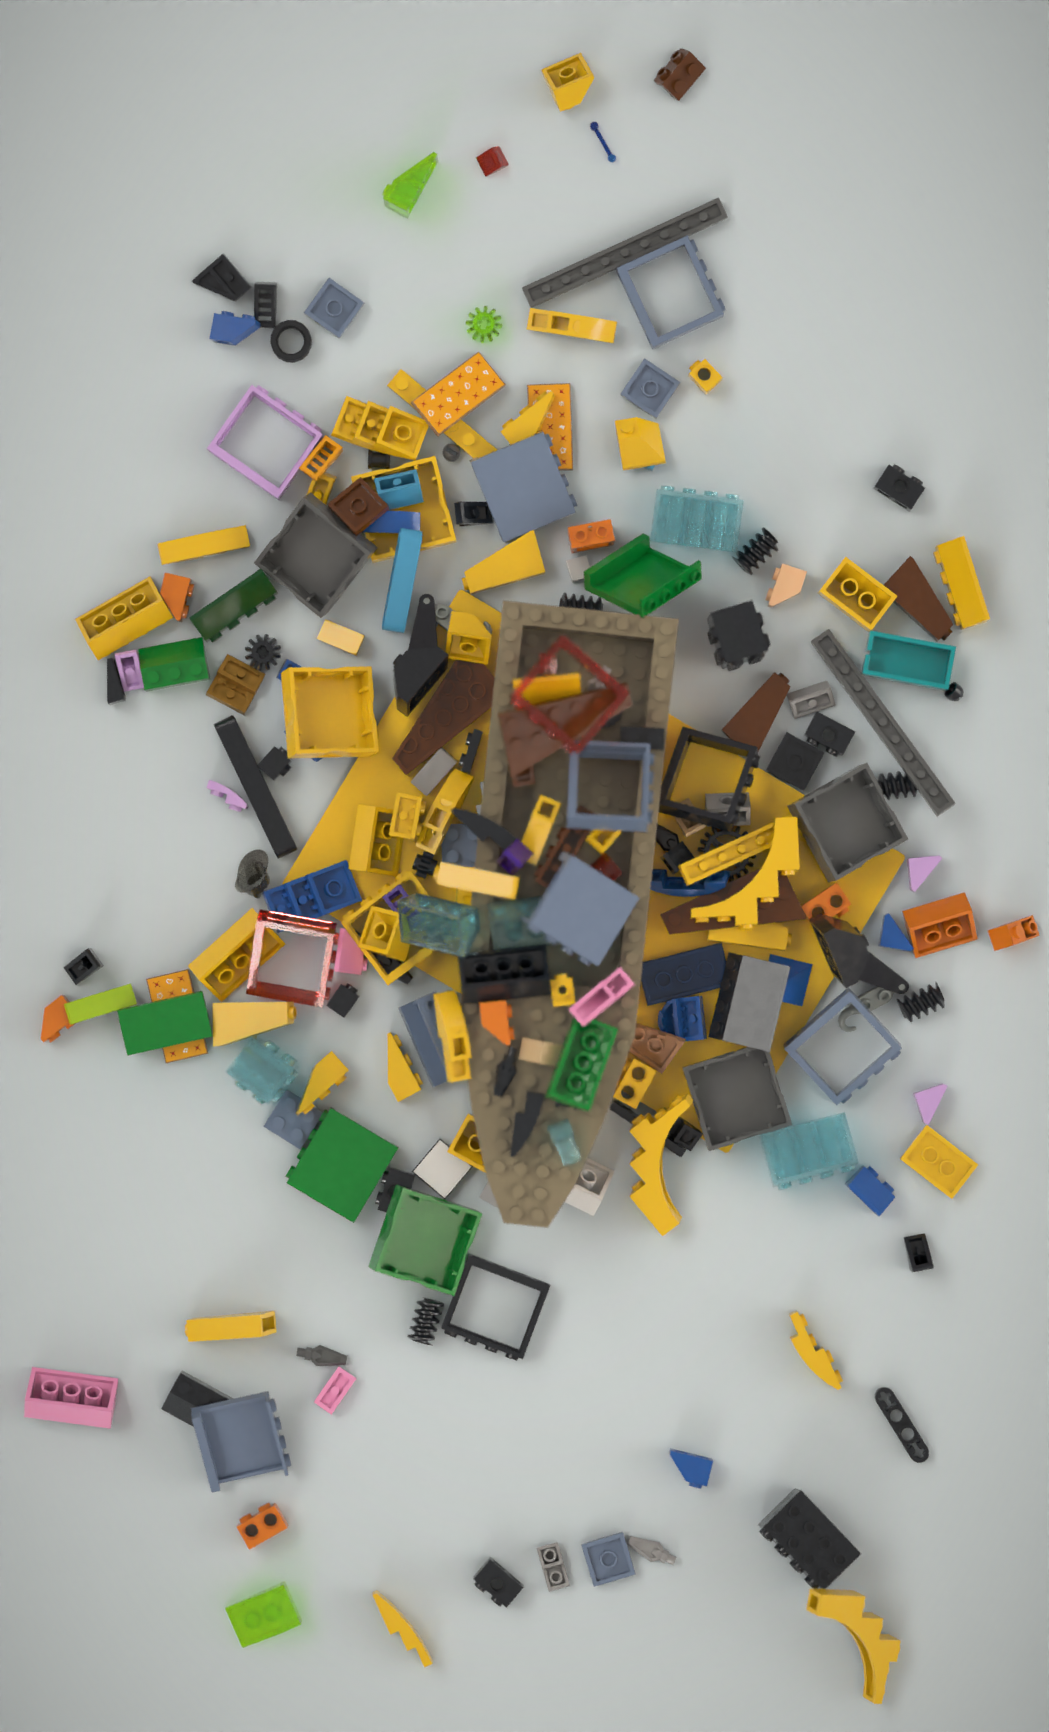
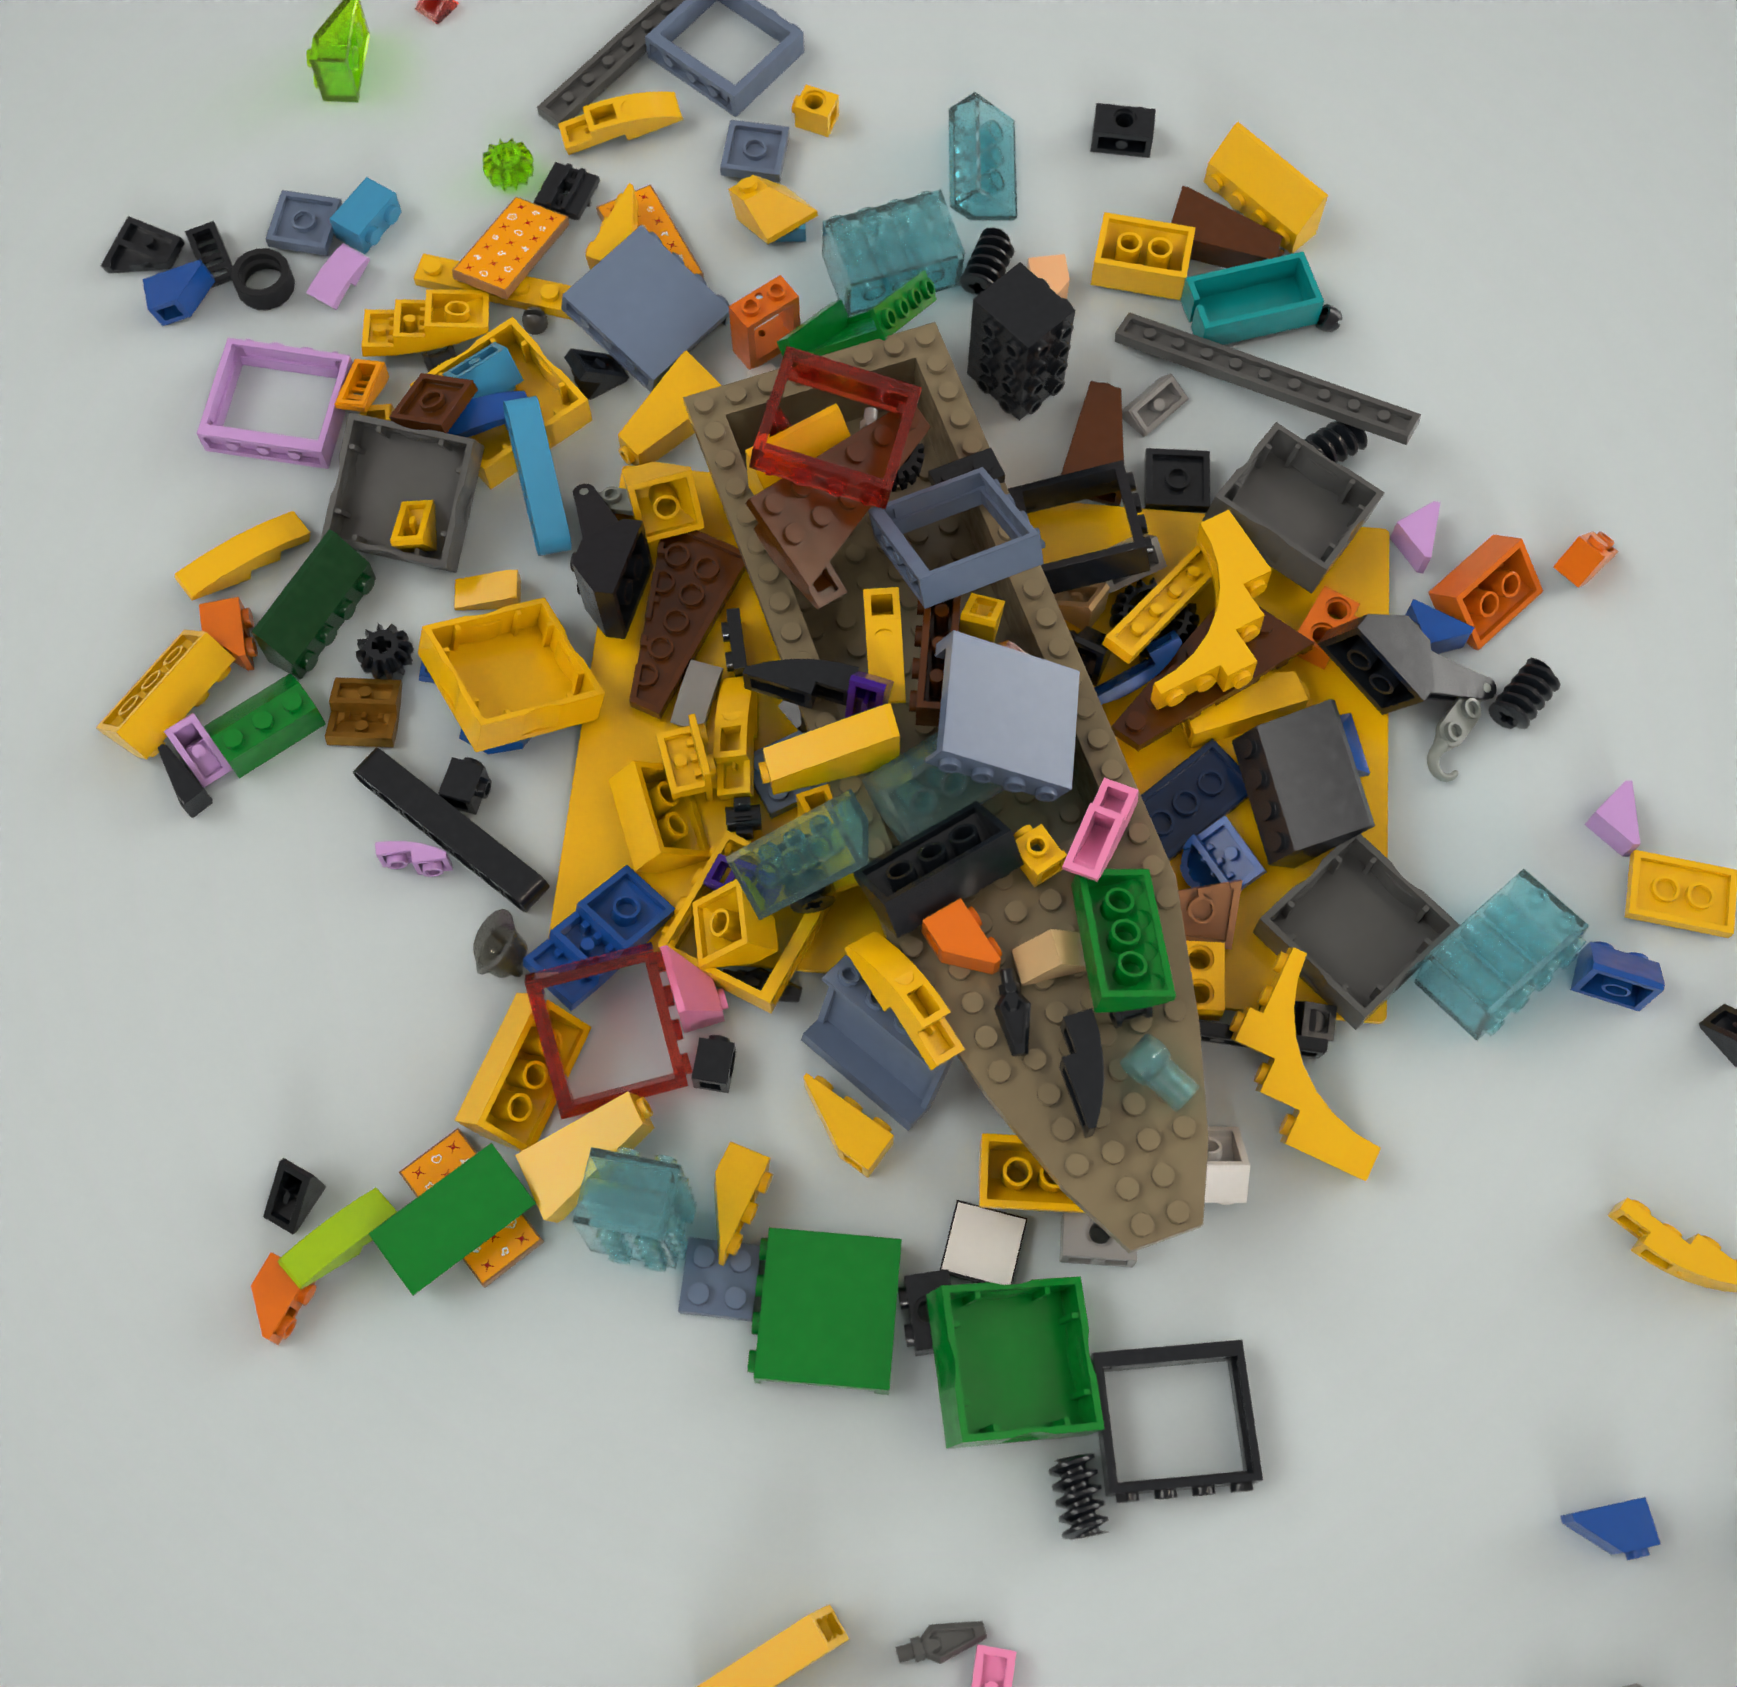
camera: 25 degrees left, 20 degrees down
(314, 580) = (415, 527): none -> yellow slope
(339, 362) = (337, 274): none -> lavender slope
(375, 323) = (365, 215): none -> dark azure brick
(510, 351) = (566, 178): none -> black piece
(794, 469) = (982, 161): none -> clear light blue slope
(820, 1020) = (1408, 773): sand blue window -> none
(841, 739) = (1216, 421): black brick -> none

